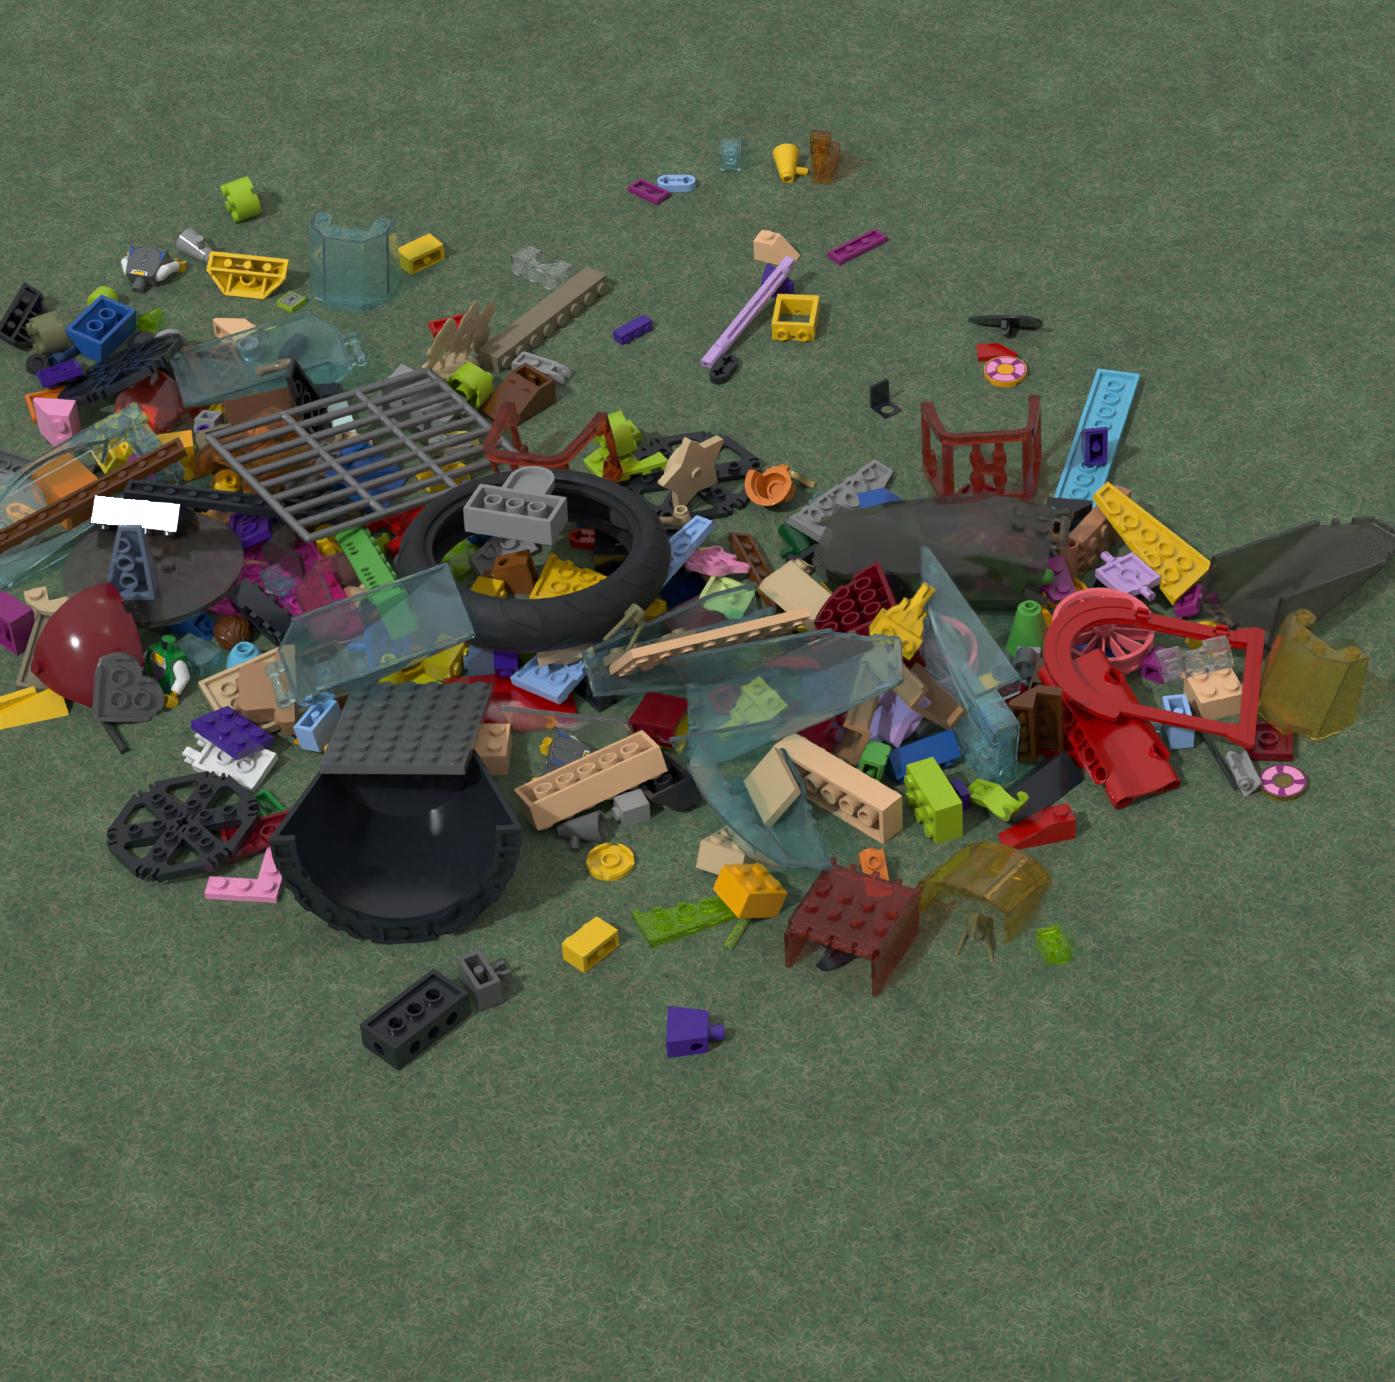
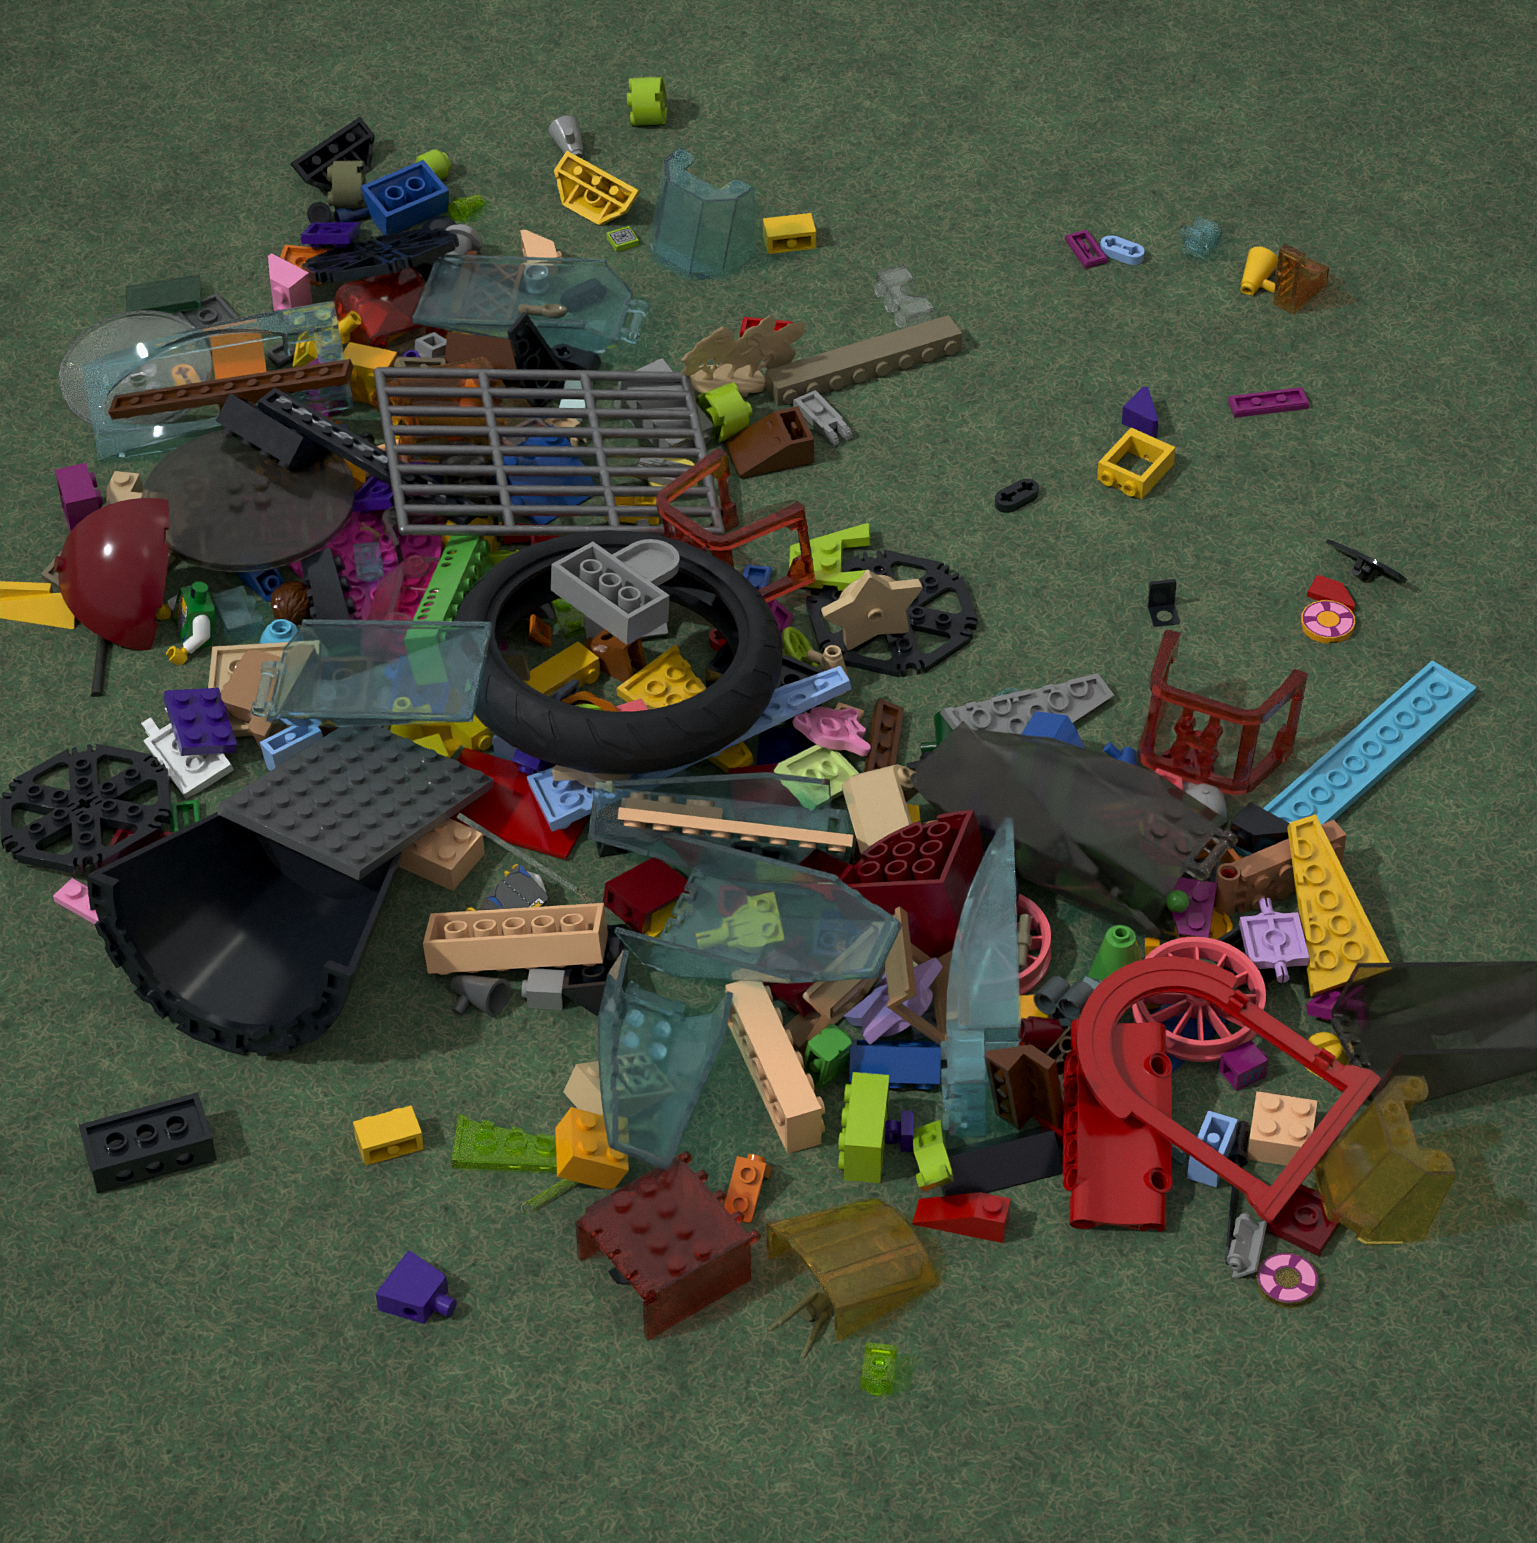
camera: 25 degrees right, 5 degrees up
(123, 691) = (124, 627): dark grey plate -> none
(132, 565) = (204, 492): sand blue wedge -> none
(149, 266) = (504, 145): dark grey torso -> none
(481, 979) = (246, 1126): dark grey brick -> none
(605, 867) = (483, 1043): yellow tile -> none
(622, 435) = (826, 531): lime brick -> none
(632, 330) = (951, 410): dark purple piece -> none
(632, 617) = (665, 765): olive plant -> none
(749, 312) = (1086, 437): lavender piece -> none
(772, 787) = (692, 1034): tan tile -> none
(773, 248) = (1170, 371): light nougat slope -> none
(773, 485) = (964, 660): orange helmet -> none
(904, 620) = (933, 905): yellow brick -> none
(1094, 446) = (1351, 760): dark purple slope -> none
(1179, 664) = (1295, 1086): clear arch -> none

